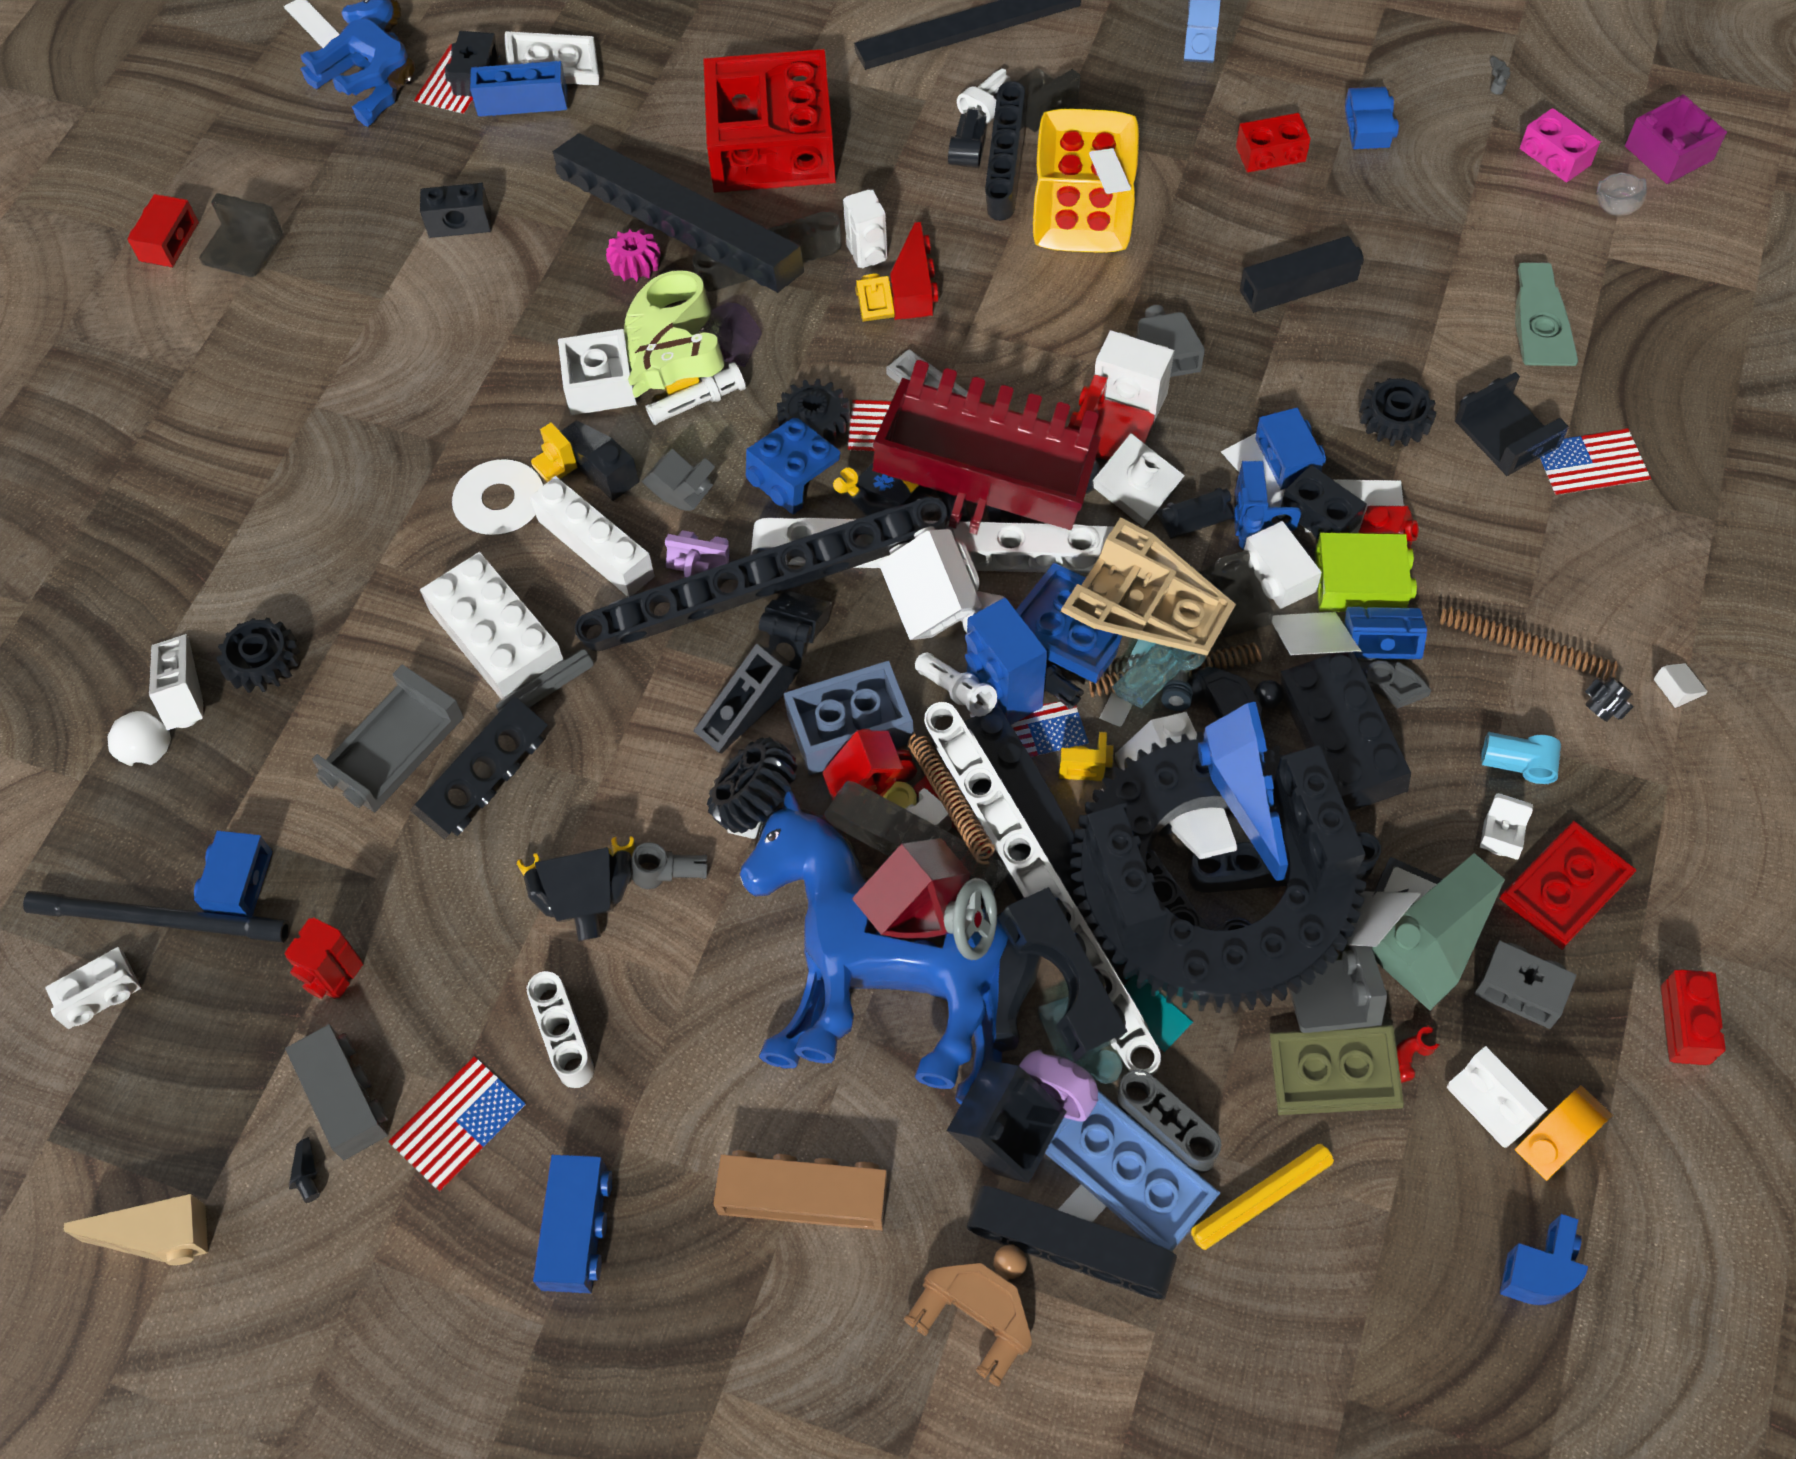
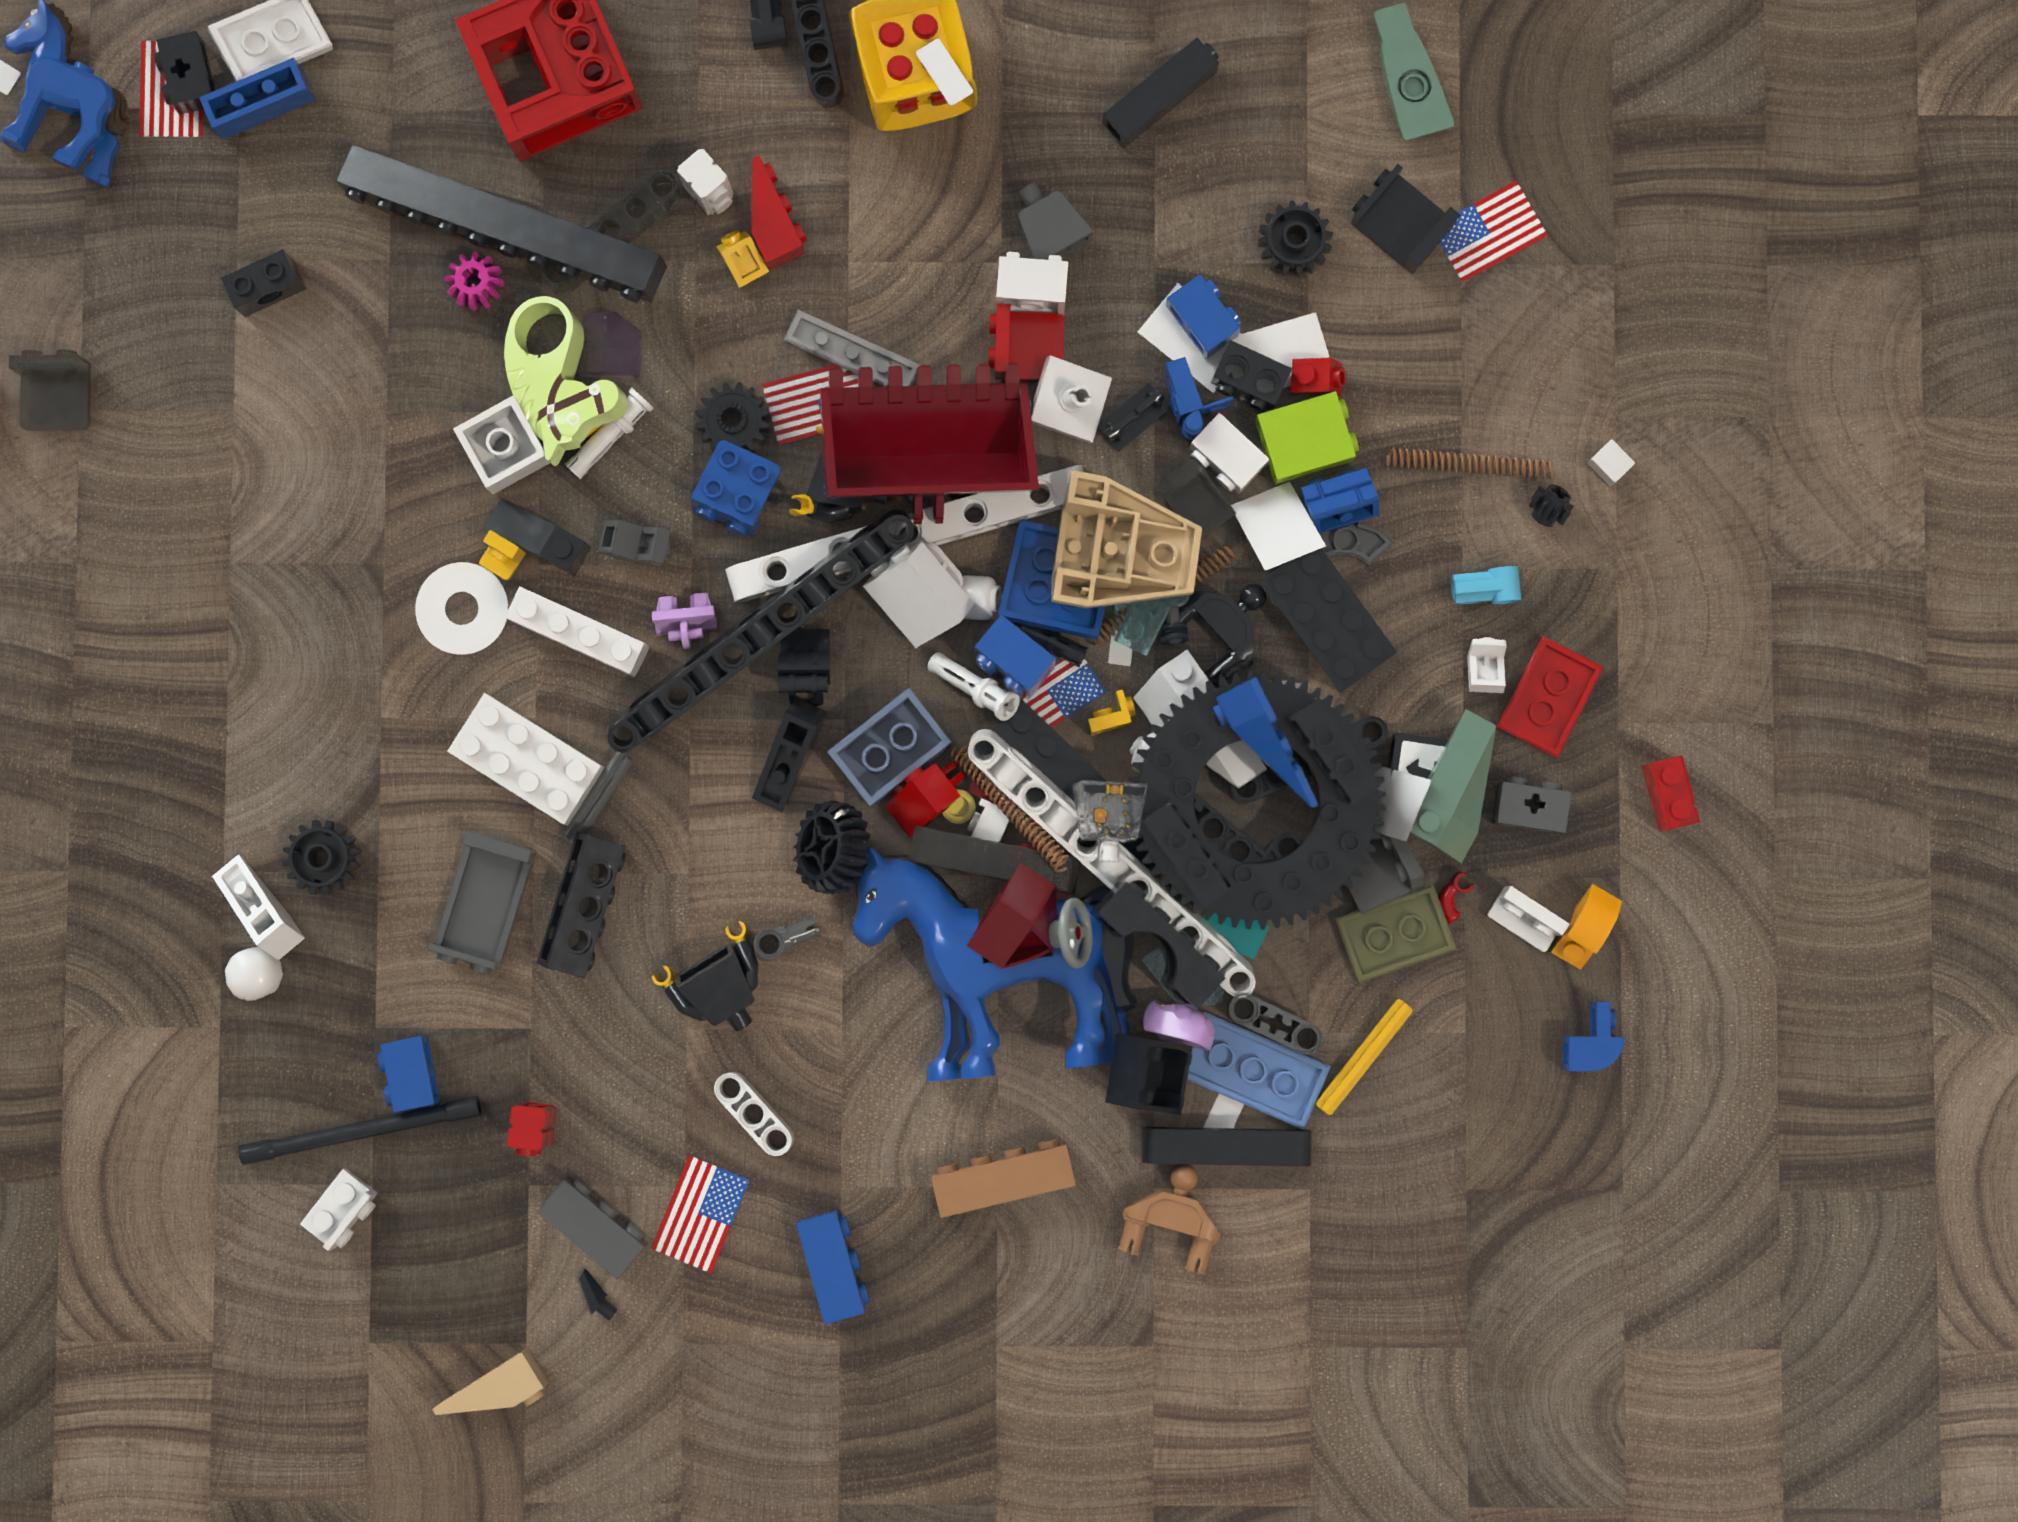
camera: 20 degrees left, 25 degrees up
(1052, 816) = (1109, 814): none -> clear torso

